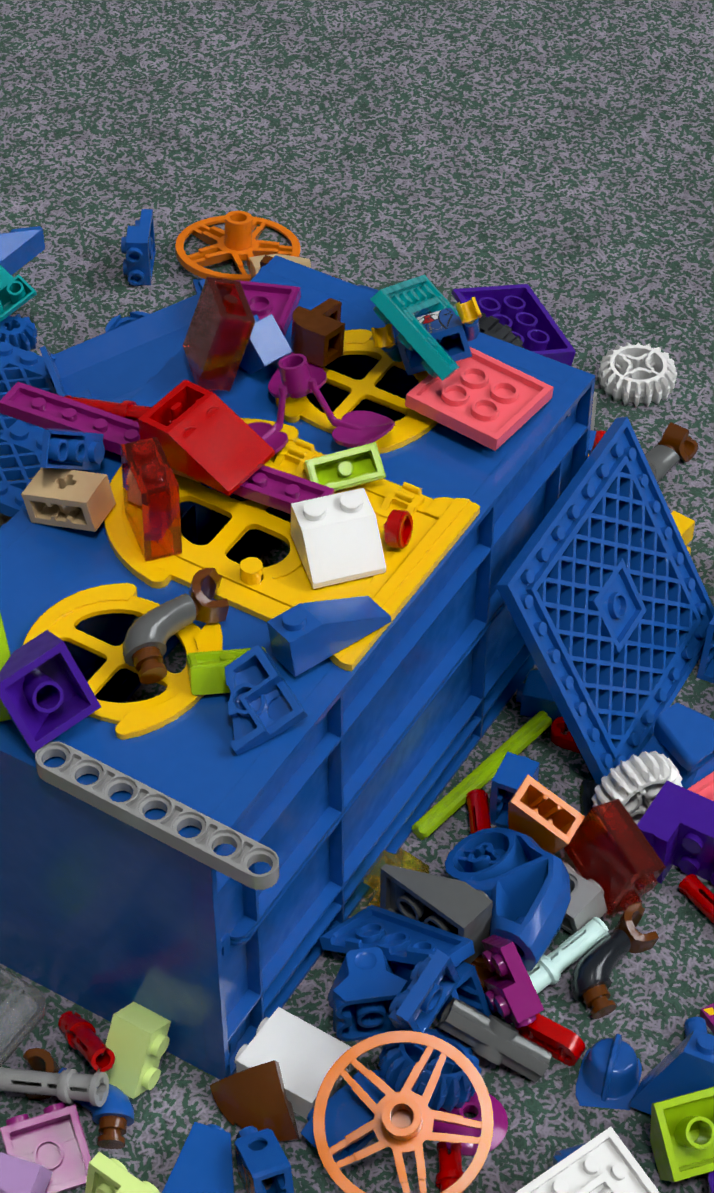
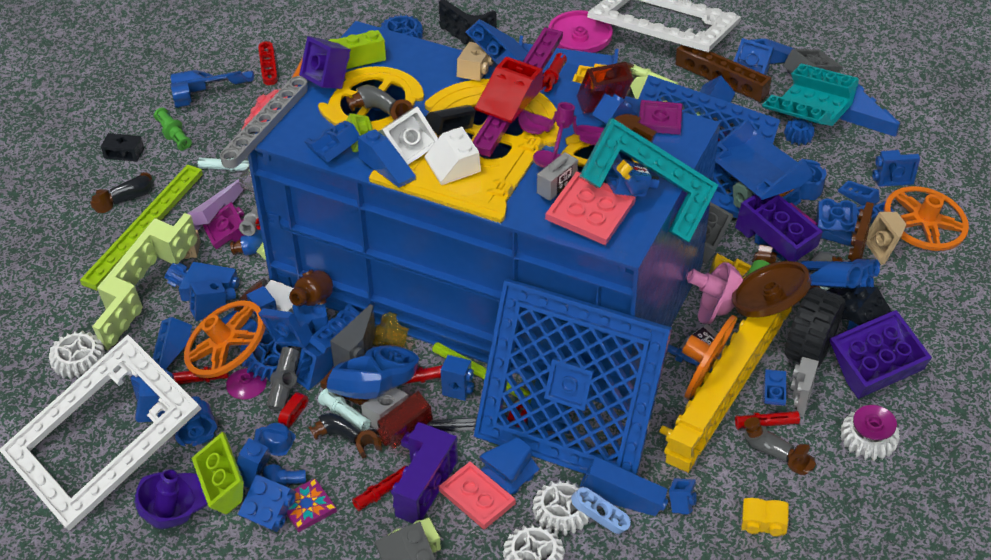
camera: 85 degrees right, 0 degrees up
(151, 498) = (461, 78): clear red brick -> none
(168, 292) = (864, 193): none -> blue slope
(235, 533) = (451, 118): none -> black brick
(267, 583) = (410, 135): none -> white slope
(312, 1059) = (262, 299): none -> blue brick
(328, 956) = (312, 289): none -> reddish brown piece
(346, 467) = (513, 156): lime slope -> none
(398, 529) = (466, 180): red tile -> none
(415, 416) = (556, 176): none -> light grey piece
(511, 988) = (310, 375): magenta plate -> none
(542, 816) = (424, 377): orange slope -> none
(637, 782) = (469, 441): white gear -> none
(643, 351) = (875, 422): none -> magenta dish

